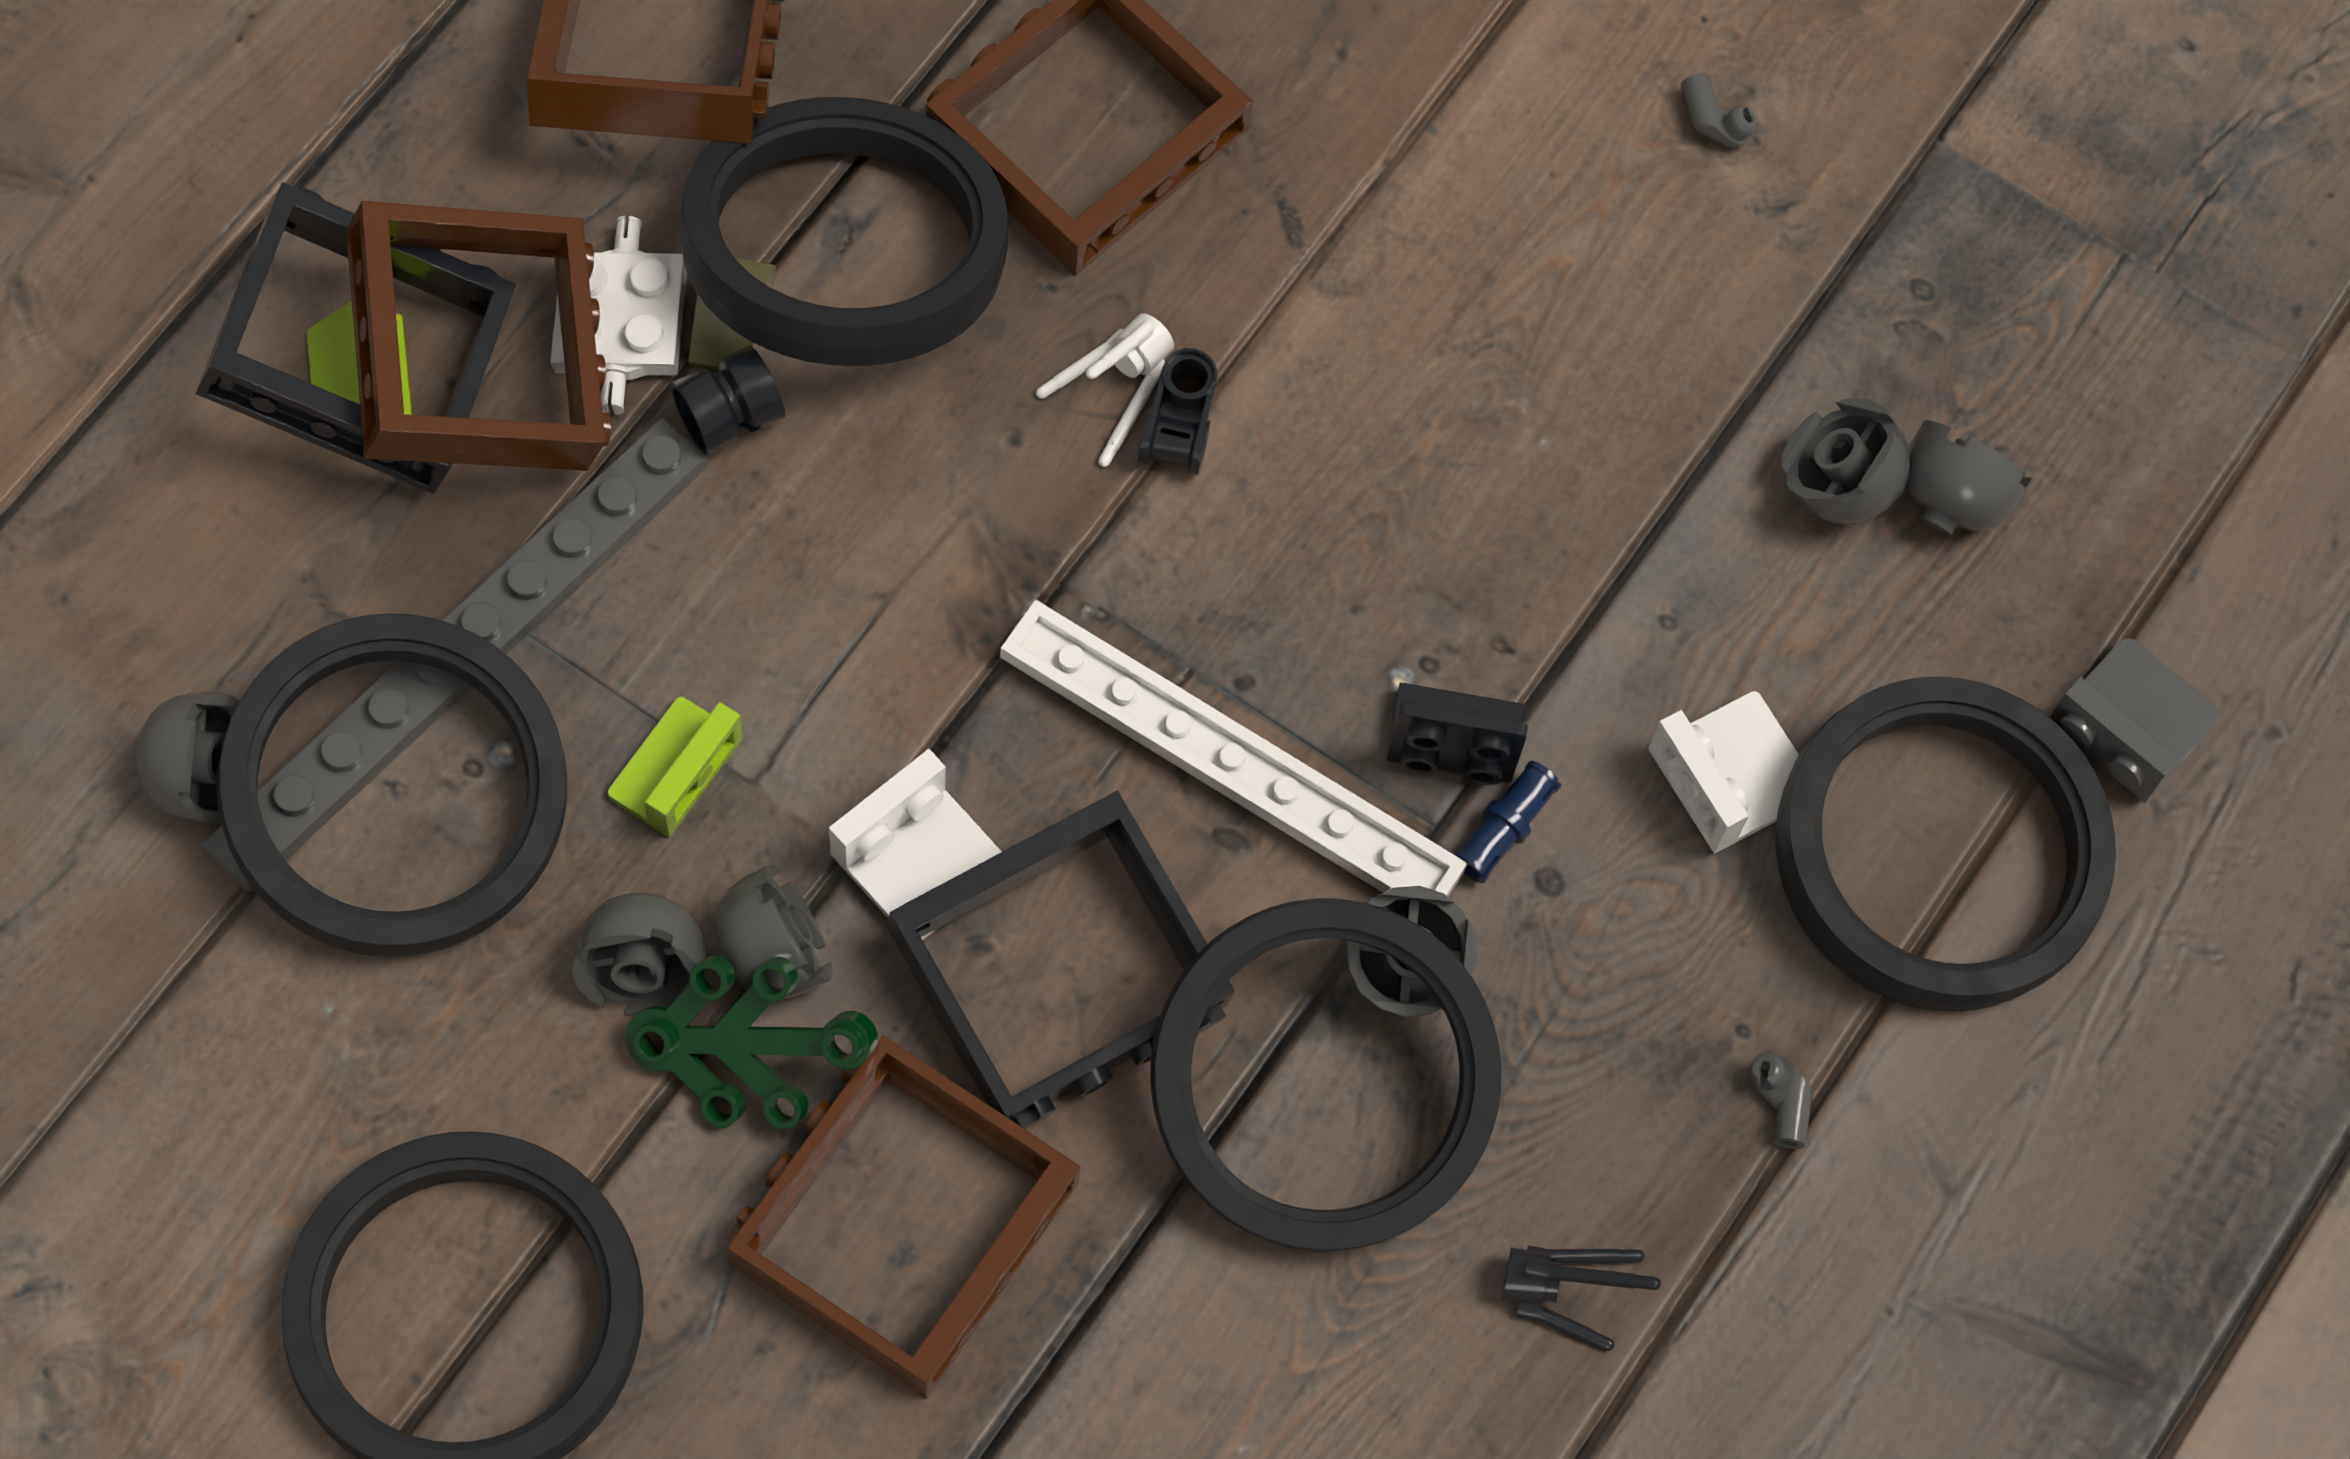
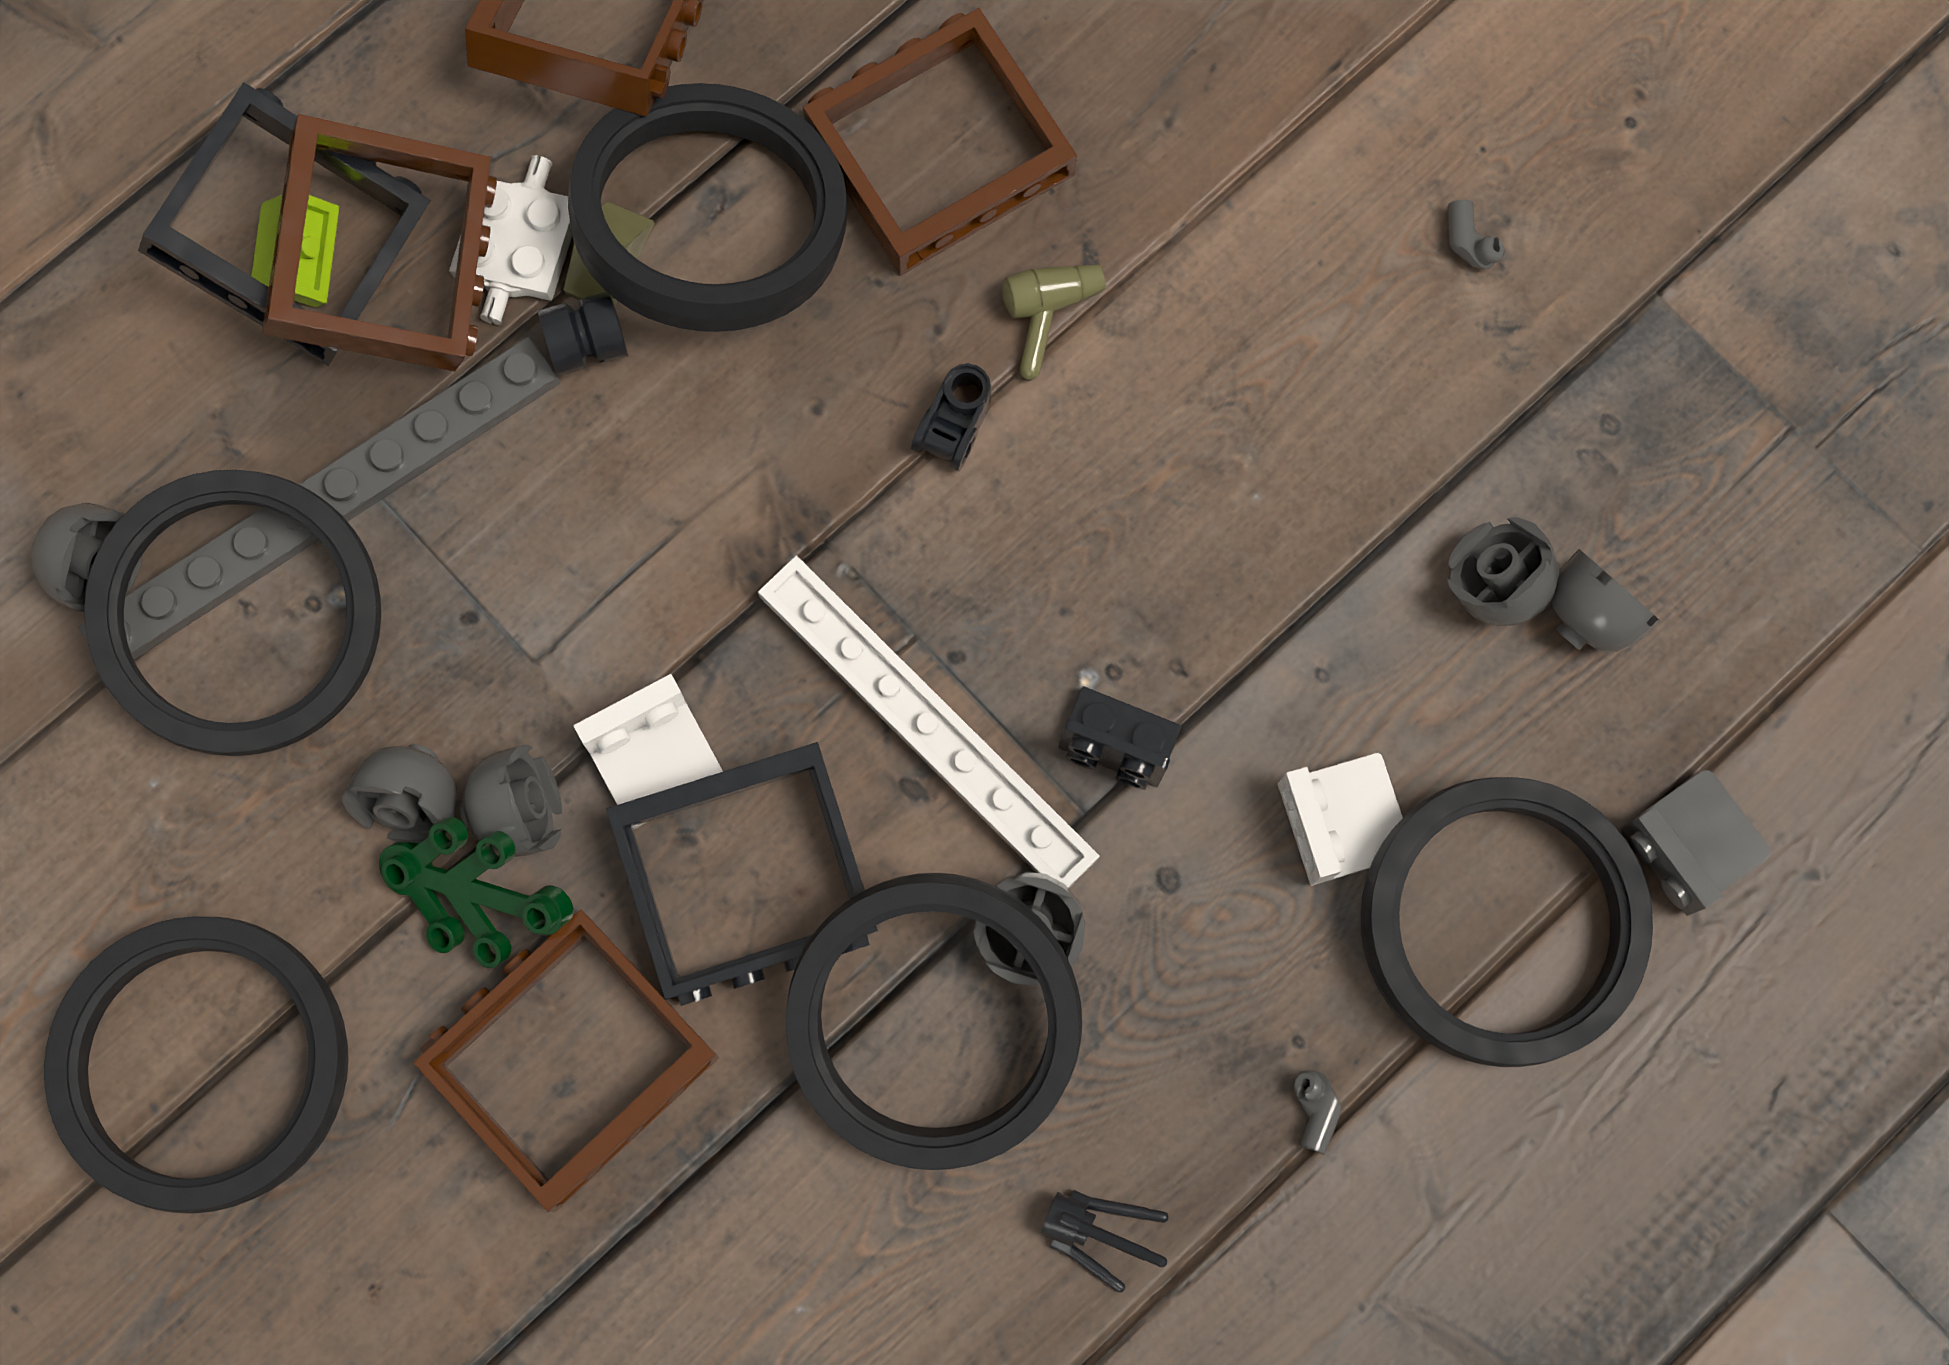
camera: 15 degrees right, 10 degrees up
(676, 763) = (474, 635): lime panel -> none
(1134, 352) = (931, 353): white plant -> none
(1243, 263) = (1040, 293): none -> olive piece
(1508, 820) = (1143, 824): dark blue pin -> none

